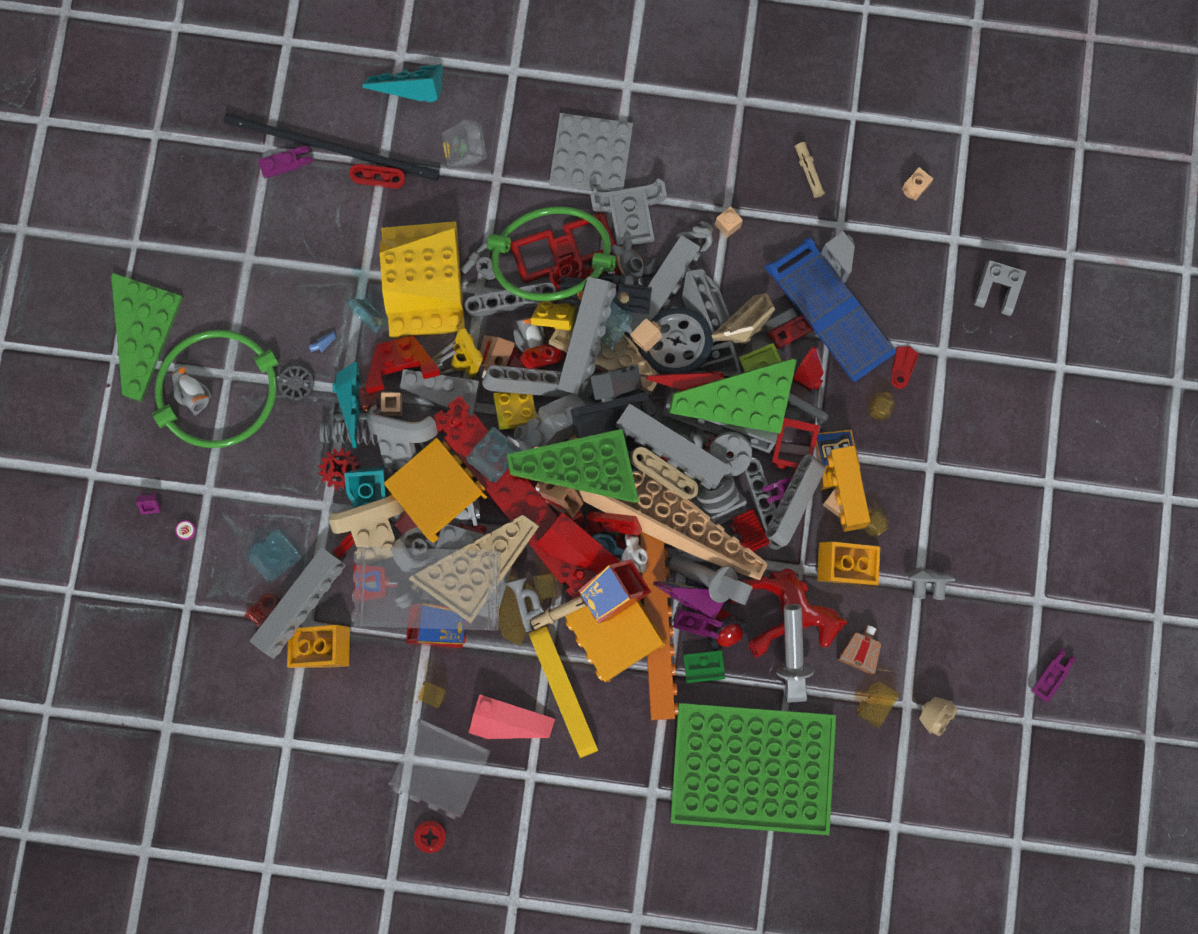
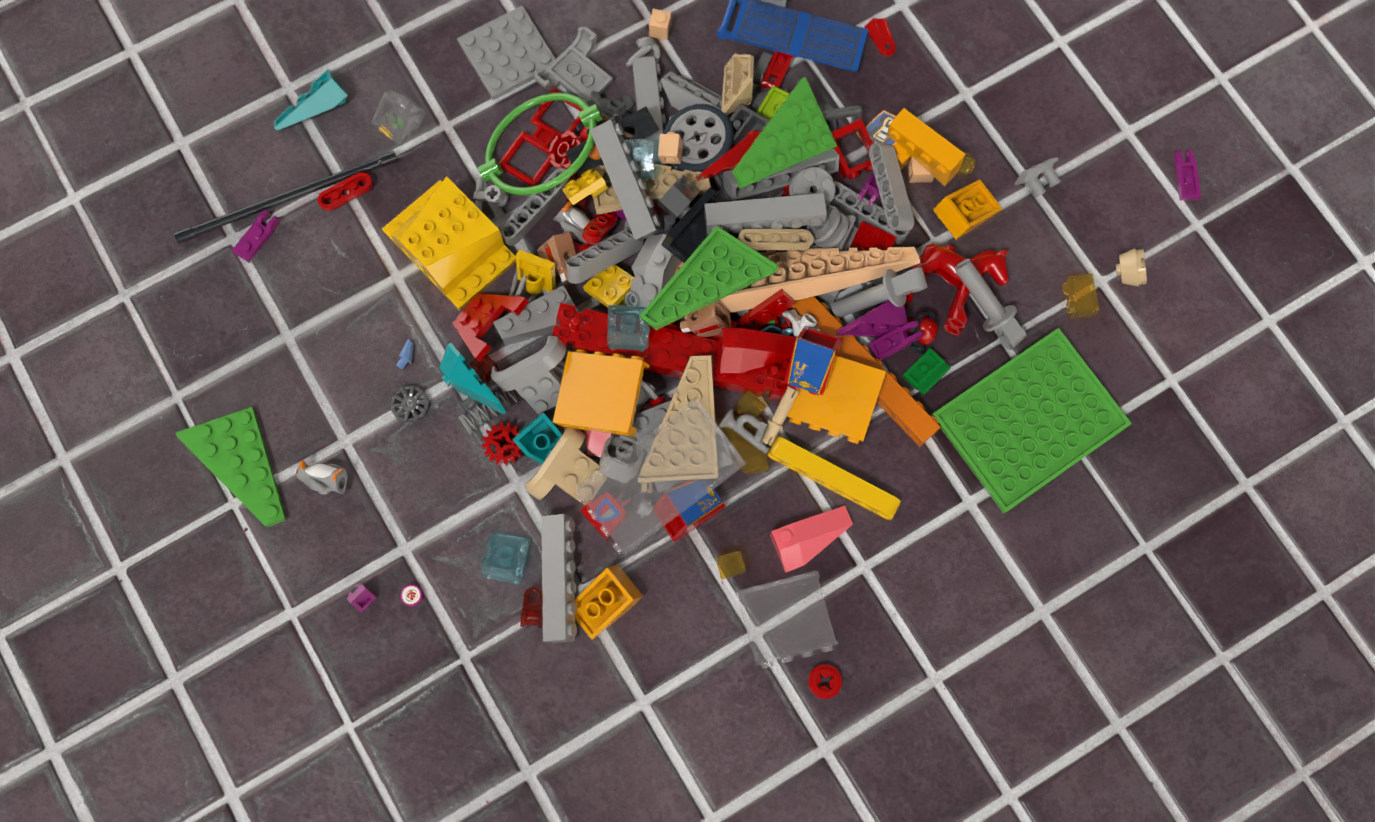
camera: 40 degrees left, 5 degrees down
(166, 415) = (317, 513): bright green piece -> none
(344, 545) = (558, 501): red axle -> none
(367, 314) = (425, 304): clear light blue slope -> none
(391, 404) = (505, 356): light nougat brick -> none
(810, 371) = (818, 80): red wedge -> none
(862, 651) = (1035, 266): nougat torso -> none
(881, 406) = (891, 75): clear yellow head -> none

